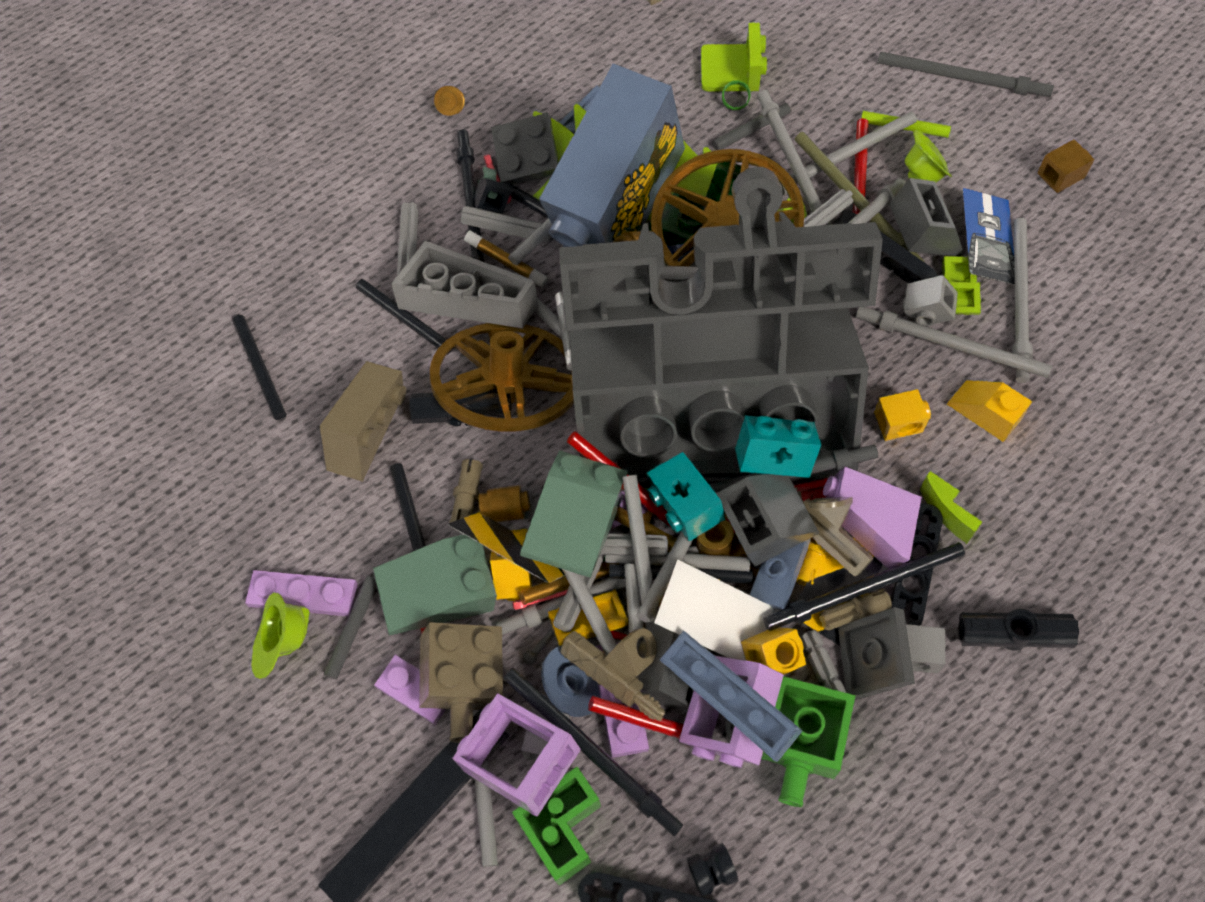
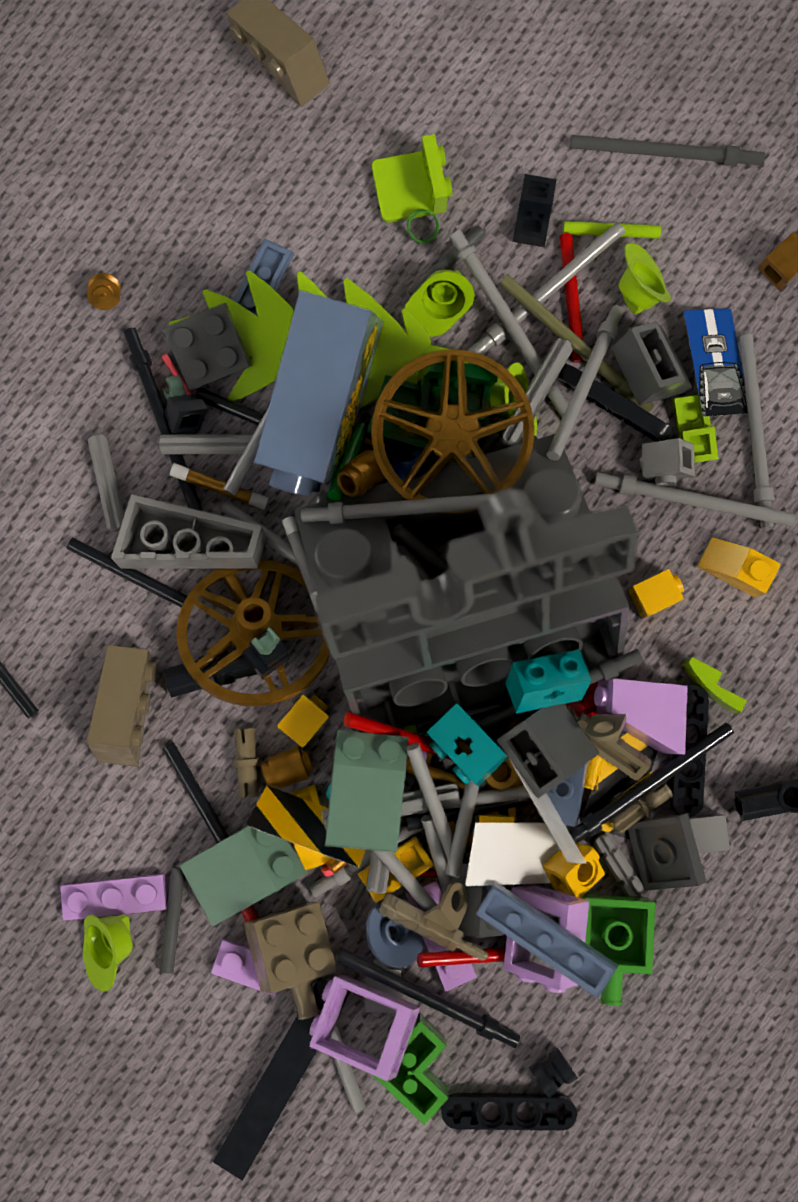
camera: 20 degrees left, 20 degrees up
(511, 379) = (266, 653): none -> black piece
(530, 463) = (305, 719): none -> yellow brick
(744, 134) = (441, 301): none -> lime piece
(760, 586) = (555, 825): none -> white sticker
(837, 100) = (534, 210): none -> black slope

